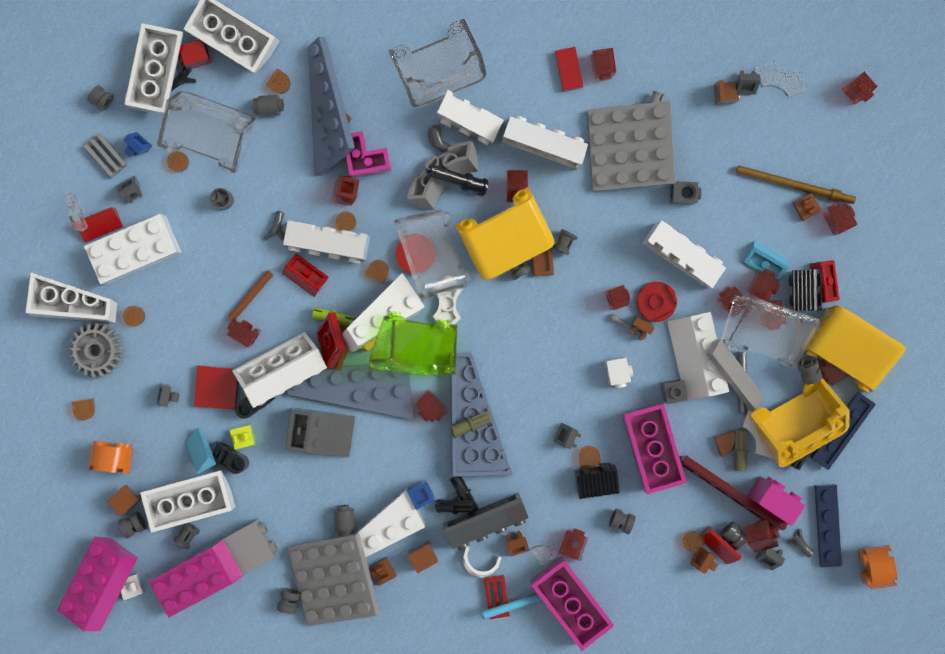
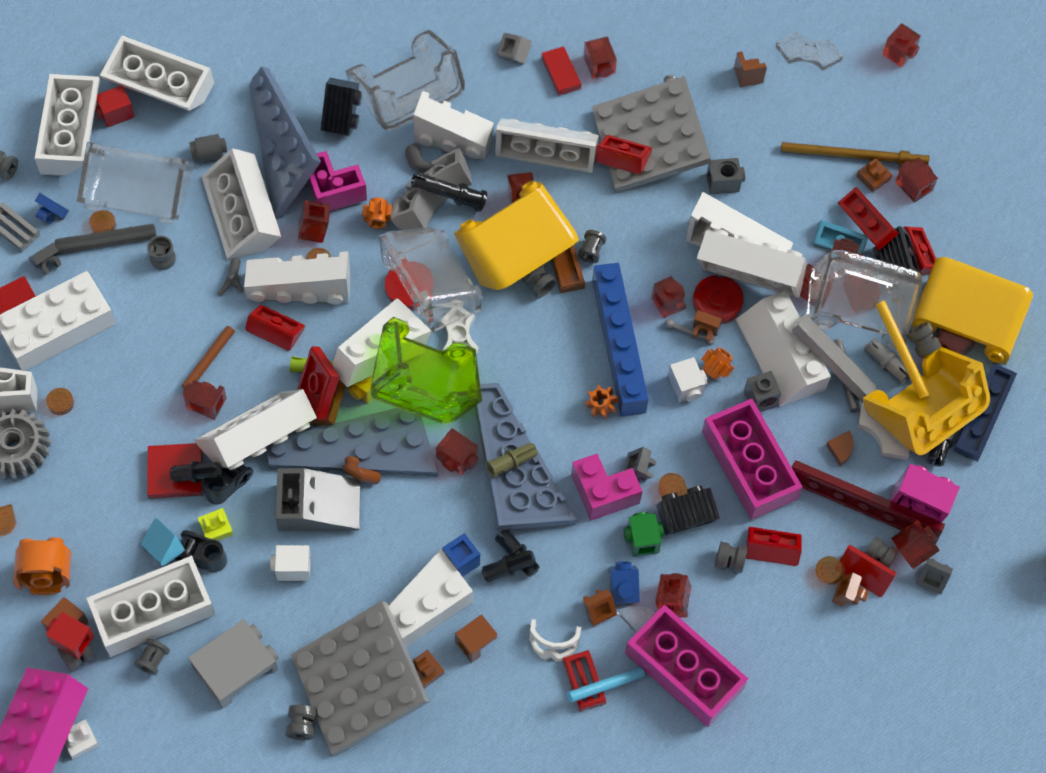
camera: 15 degrees left, 25 degrees down
(125, 520) = (69, 635): none -> red brick
(166, 395) = (110, 486): dark grey tile -> none
(179, 177) = (105, 238): none -> dark grey axle
(182, 78) = (102, 134): black bar -> none
(196, 578) = (170, 701): dark pink brick -> none
(229, 400) = (195, 471): none -> black axle
(279, 82) = (218, 124): clear orange tile -> none
(289, 163) = (240, 204): none -> white slope
(295, 480) = (291, 562): none -> white brick
(344, 520) = (361, 600): dark grey brick -> none
(354, 414) = (361, 474): none -> dark orange arm
(378, 270) = (365, 309): clear orange tile -> none
(379, 86) = (340, 106): none -> black brick
(397, 188) = (377, 213): none -> orange gear
(485, 521) = (552, 577): dark grey slope -> none
(533, 42) = (514, 48): none -> light grey slope
(535, 458) = (601, 492): none -> dark pink brick
(539, 528) = (624, 582): none -> blue bracket
(544, 385) = (608, 404): none -> orange gear
(560, 493) = (643, 534): none -> green brick
(572, 329) = (620, 339): none -> blue brick
(605, 164) = (623, 154): none -> red slope
(644, 361) = (717, 363): none -> orange gear
(656, 513) = (773, 546): none -> red slope
(688, 287) = (752, 262): none -> white slope
(740, 450) = (863, 453): olive axle -> none
(747, 83) = (773, 56): dark grey tile -> none
(778, 376) = (887, 360): none -> light grey pin
(790, 378) = (902, 349): none -> yellow bar
(791, 252) = (867, 218): none -> red tile
(801, 544) = (970, 555): dark grey bar -> none
(828, 525) = (999, 529): dark blue plate -> none

